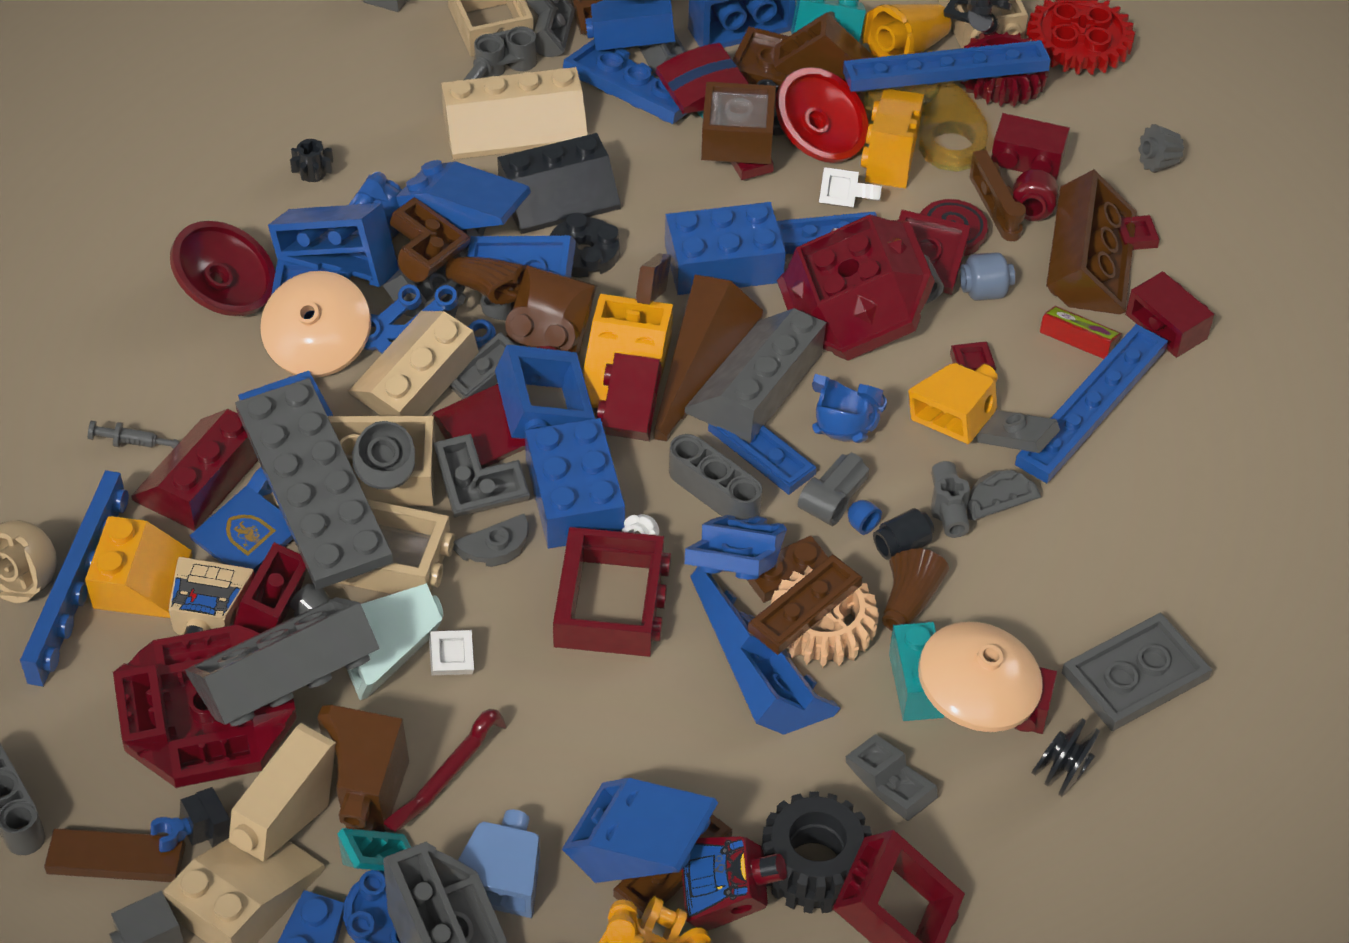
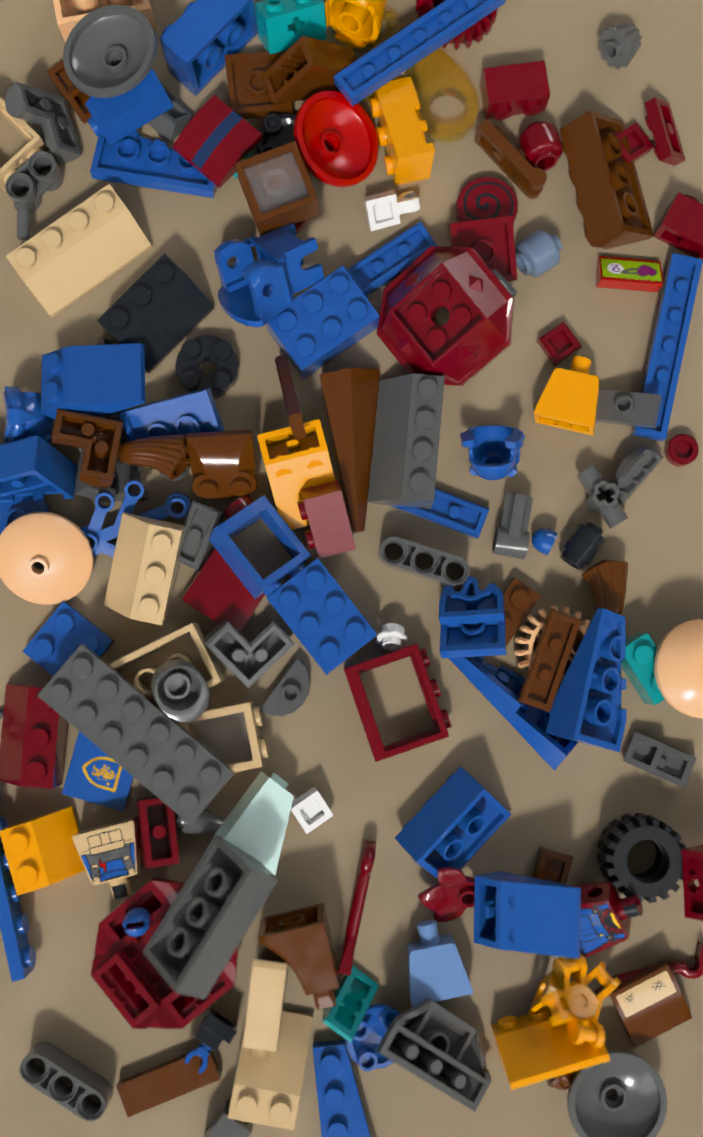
camera: 30 degrees left, 35 degrees up
(190, 650) = (136, 915): none -> blue hinge
(556, 799) = (450, 895): none -> dark red plate
(607, 735) = (452, 824): none -> blue slope
(689, 178) = (264, 288): none -> blue piece
(836, 654) = (589, 697): none -> blue wedge
(1066, 500) = (681, 450): none -> dark red tile
(1175, 230) = (664, 130): none -> dark red plate

